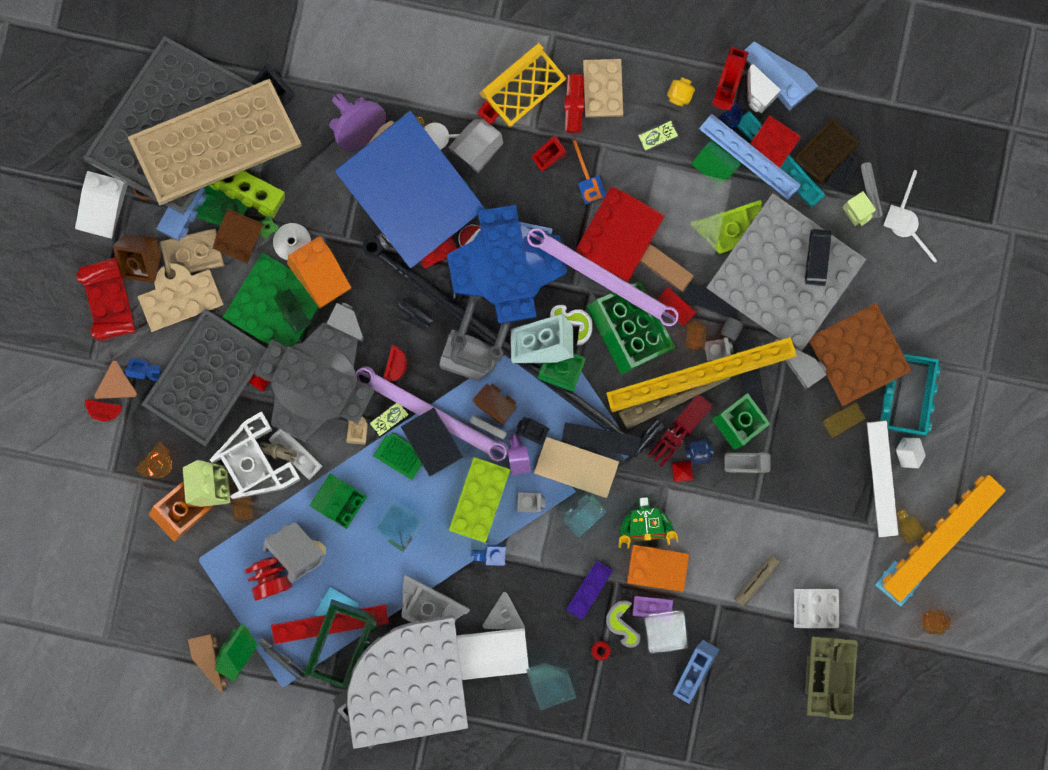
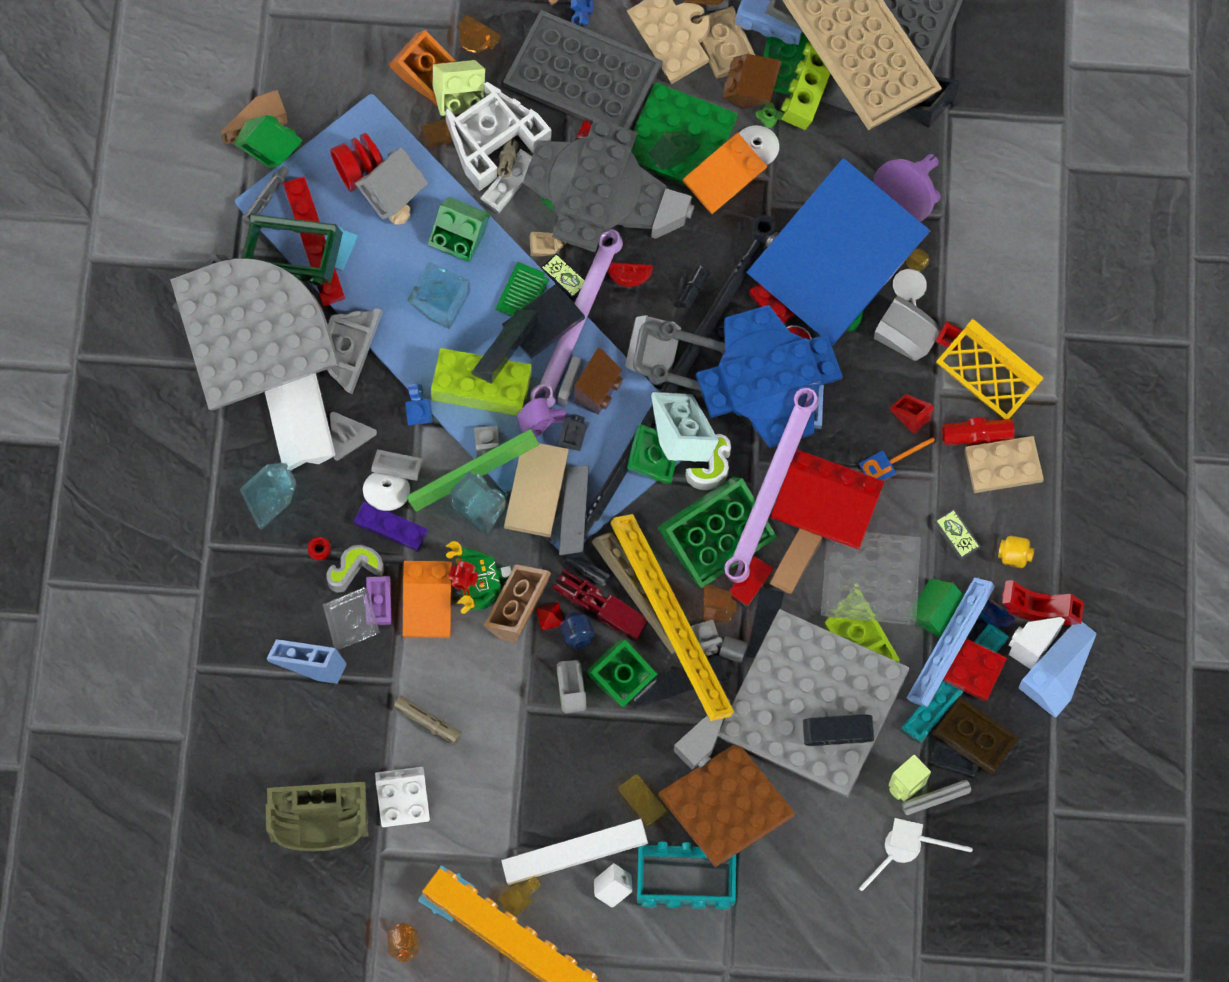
camera: 80 degrees right, 15 degrees down
(455, 476) = (505, 345): none -> black slope
(537, 578) = (397, 465): none -> light grey tile
(555, 517) = (480, 465): none -> bright green tile
(567, 590) = (386, 497): none -> white dish
(649, 536) = (463, 575): none -> red gear
(674, 495) = (516, 602): none -> medium nougat slope

